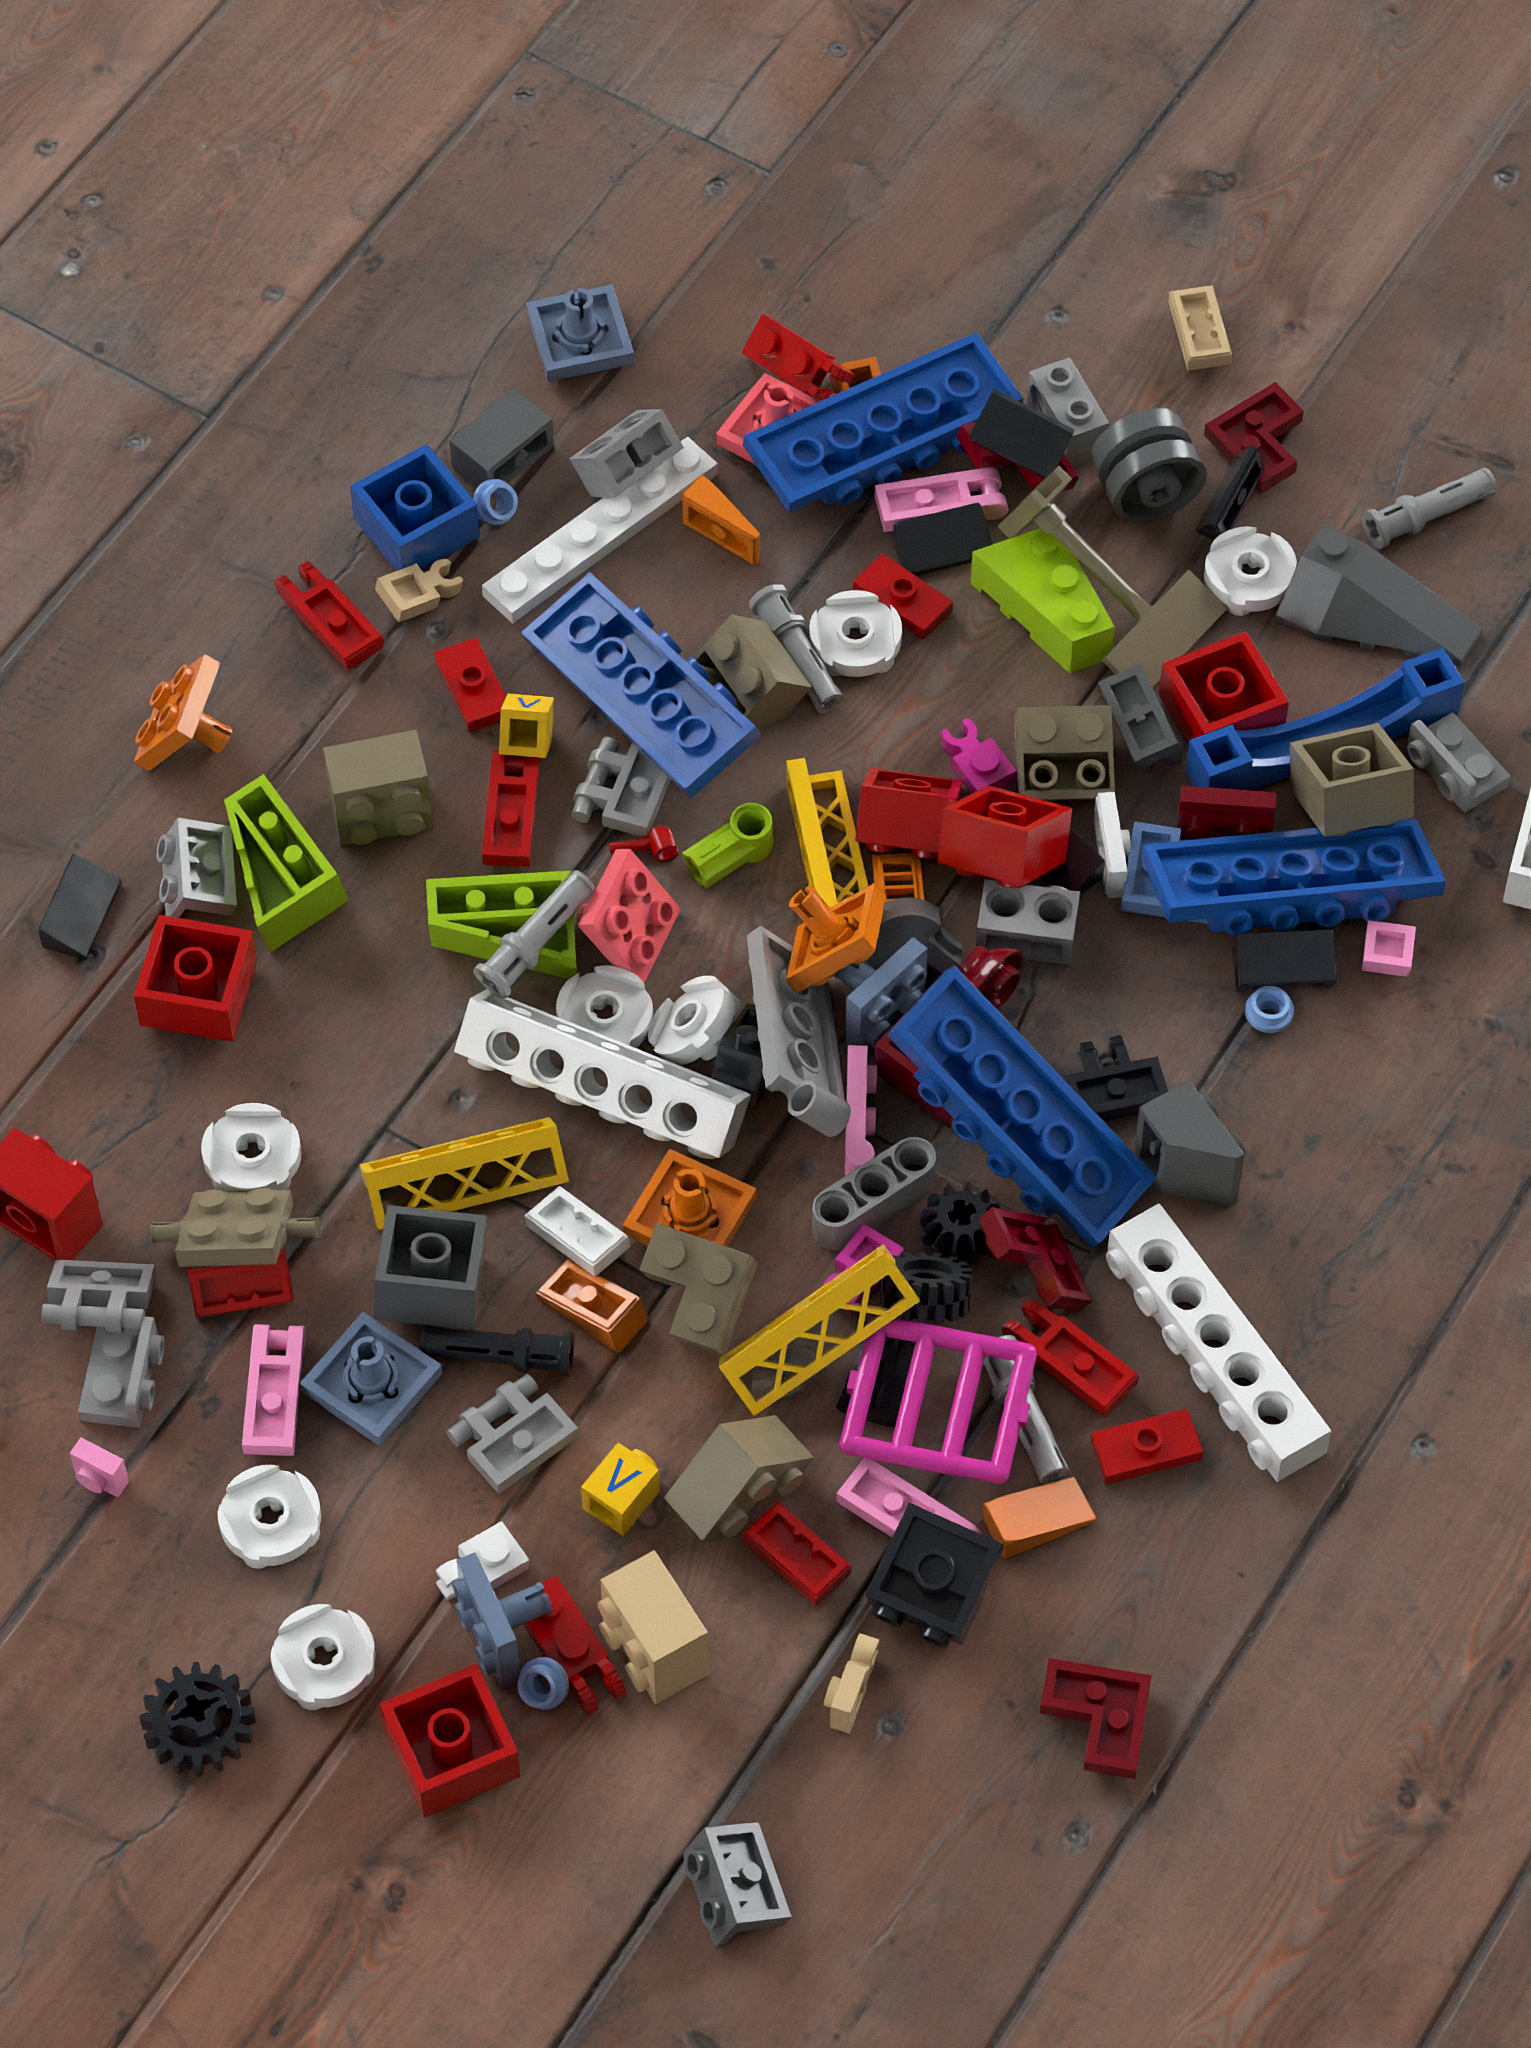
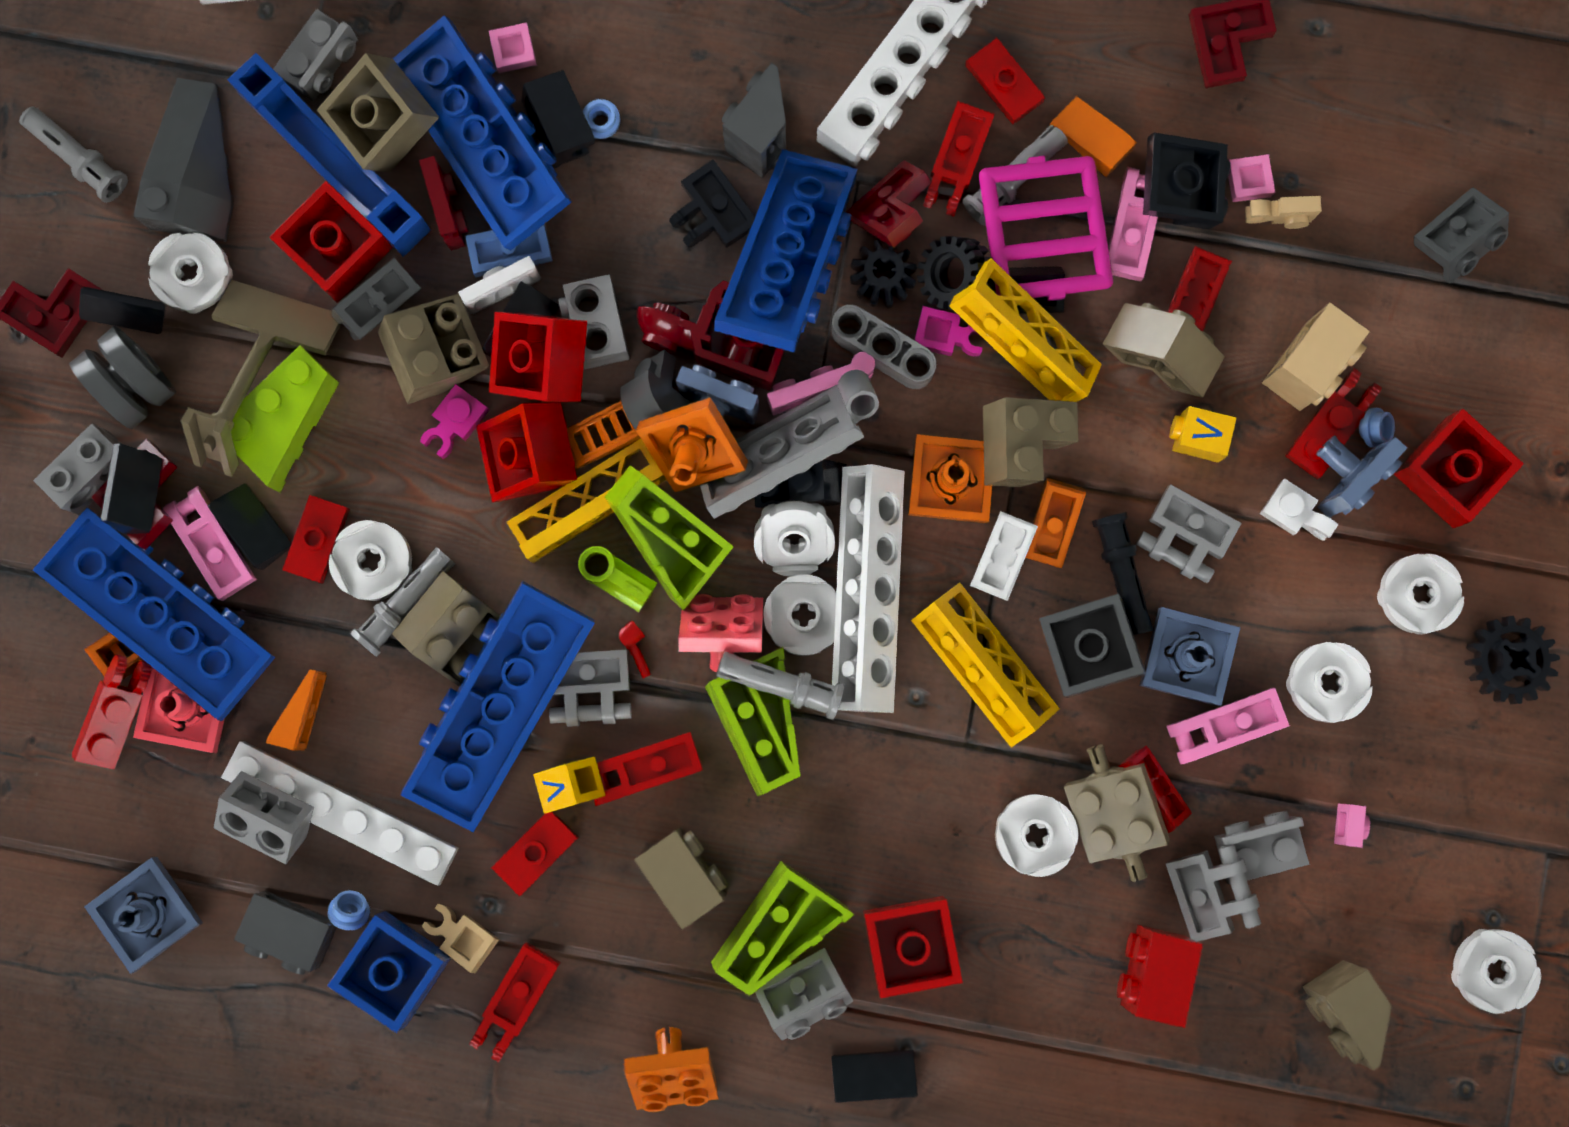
camera: 110 degrees left, 25 degrees up
(751, 890) = (669, 537): none -> lime wedge
(910, 1665) = (1251, 178): none -> bright pink plate

